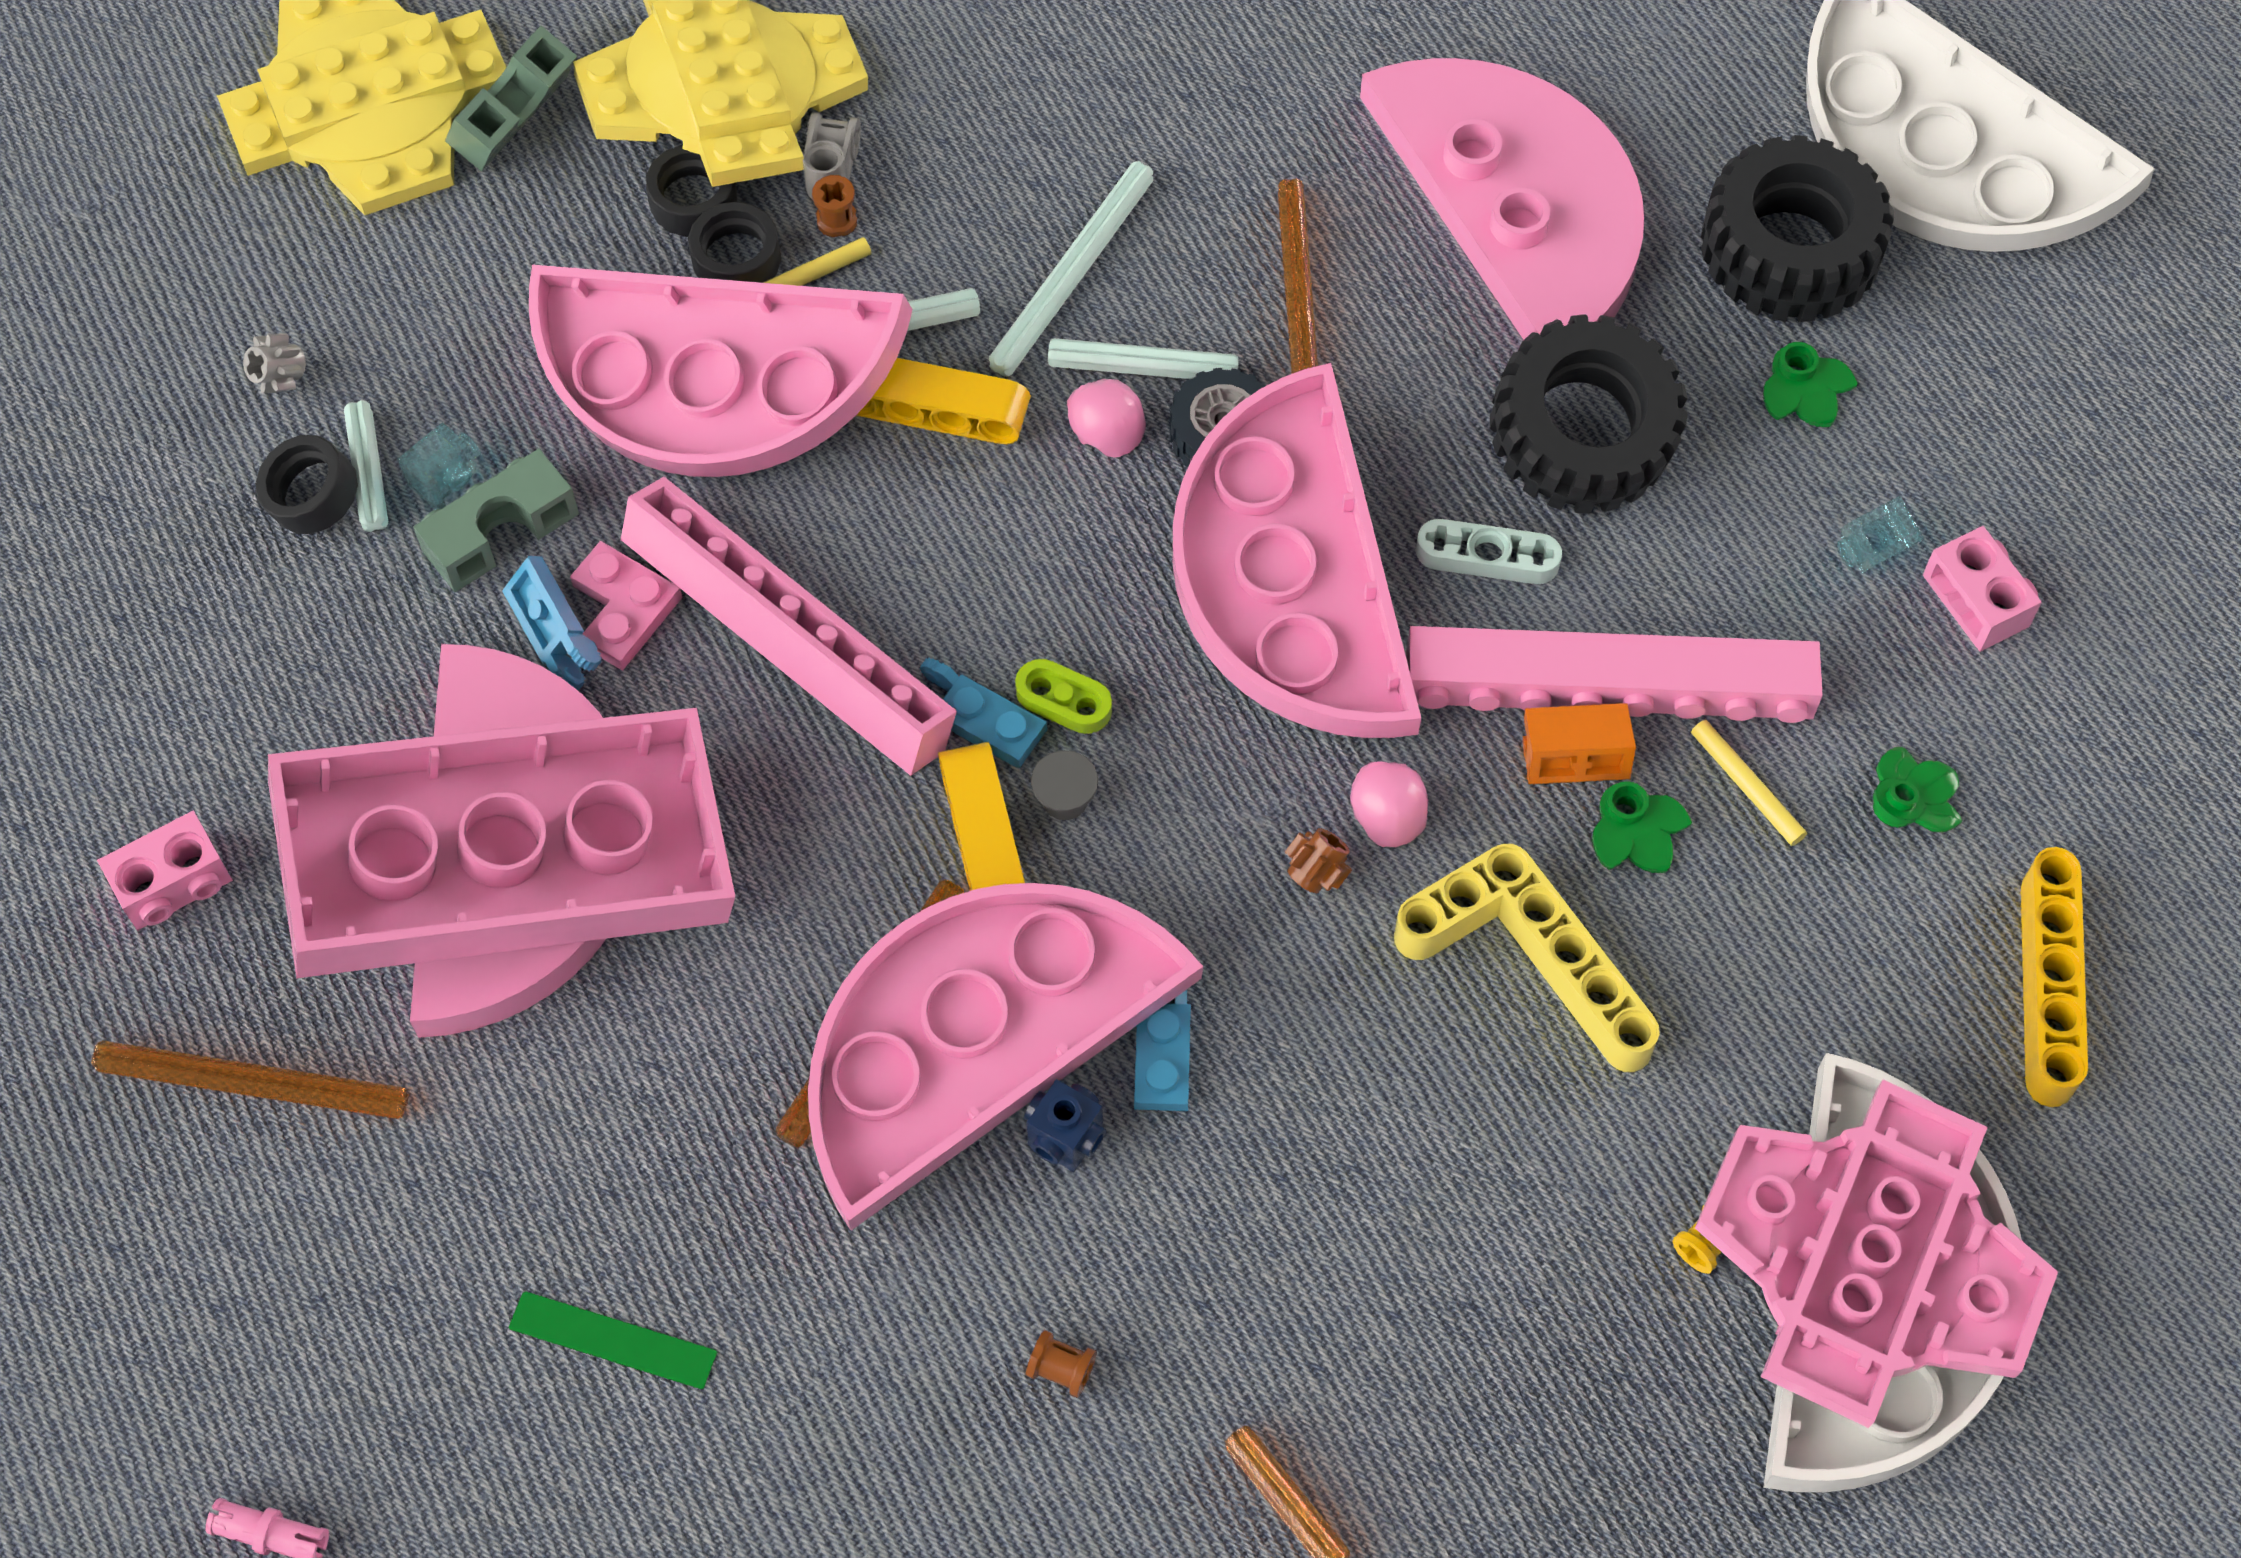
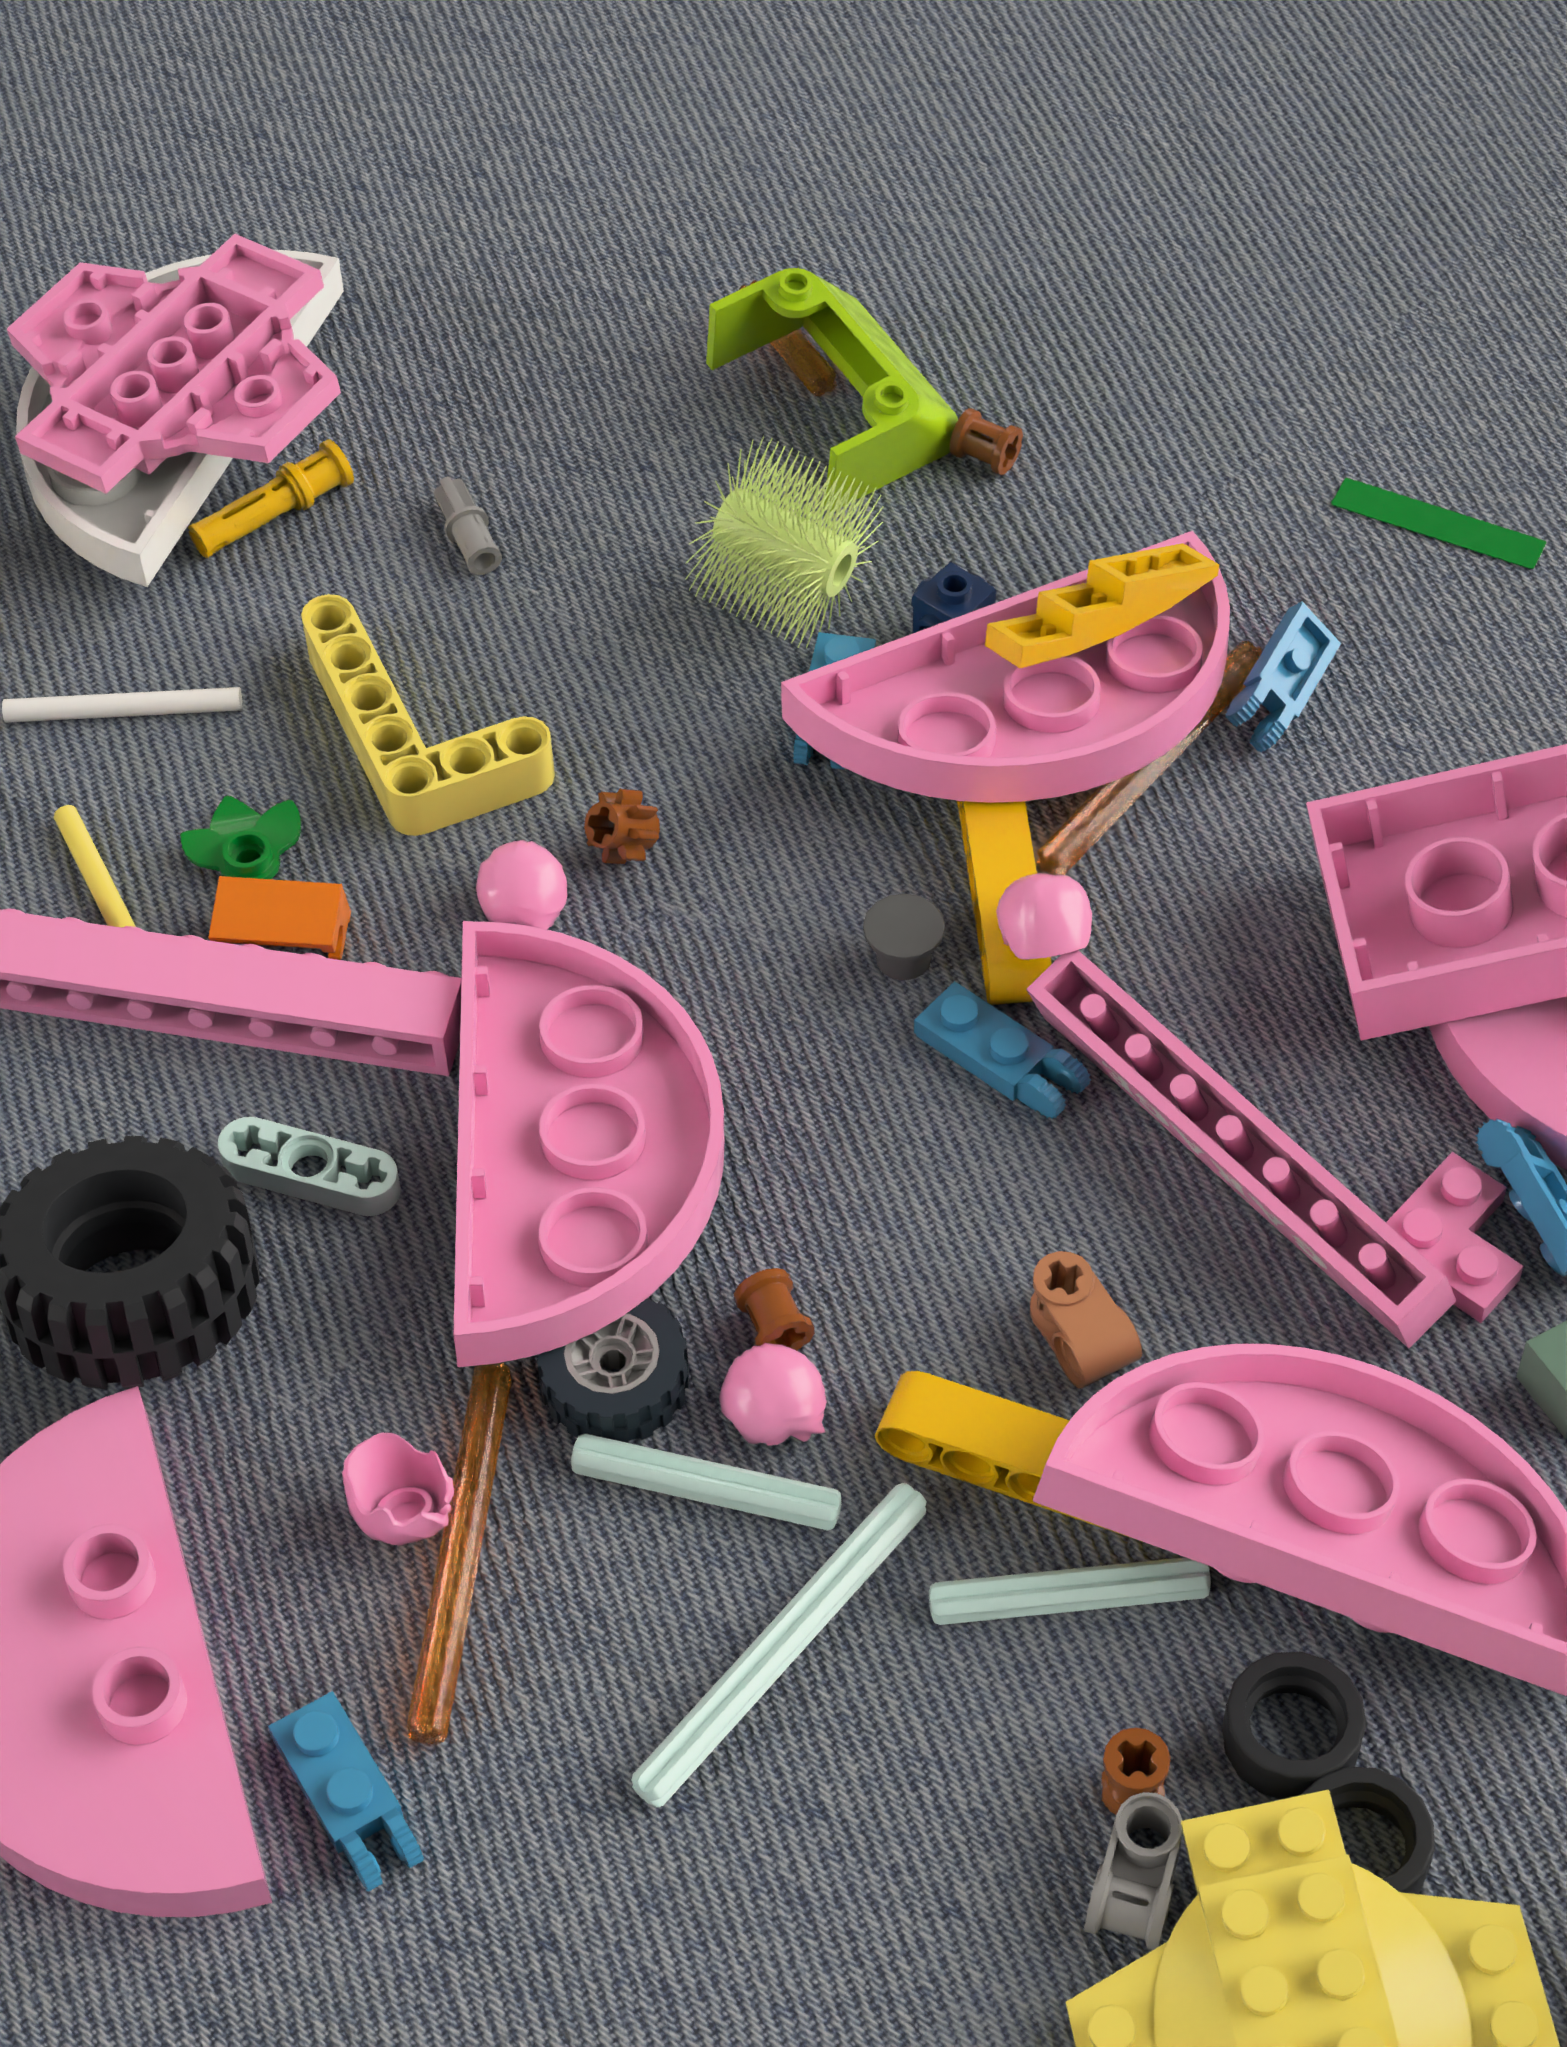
camera: 170 degrees left, 10 degrees down
(758, 1099) = (1284, 675): none -> dark azure hinge
(824, 264) = (1175, 1691): light yellow bar -> none
(893, 493) = (1081, 1320): none -> nougat piece
(923, 1092) = (1115, 599): none -> yellow slope
(947, 759) = (1044, 916): none -> bright pink hair
(1066, 696) = (892, 1048): lime plate -> none
(1115, 472) = (773, 1310): none -> dark orange bush
(1222, 1465) = (905, 412): none -> lime windscreen
(1228, 1137) = (785, 542): none -> yellowish green piece
(1332, 152) = (343, 1785): none -> dark azure hinge
(1347, 307) = (396, 1490): none -> bright pink hair
(1547, 1197) = (467, 526): none -> light grey axle
(1794, 957) = (122, 704): none -> white bar

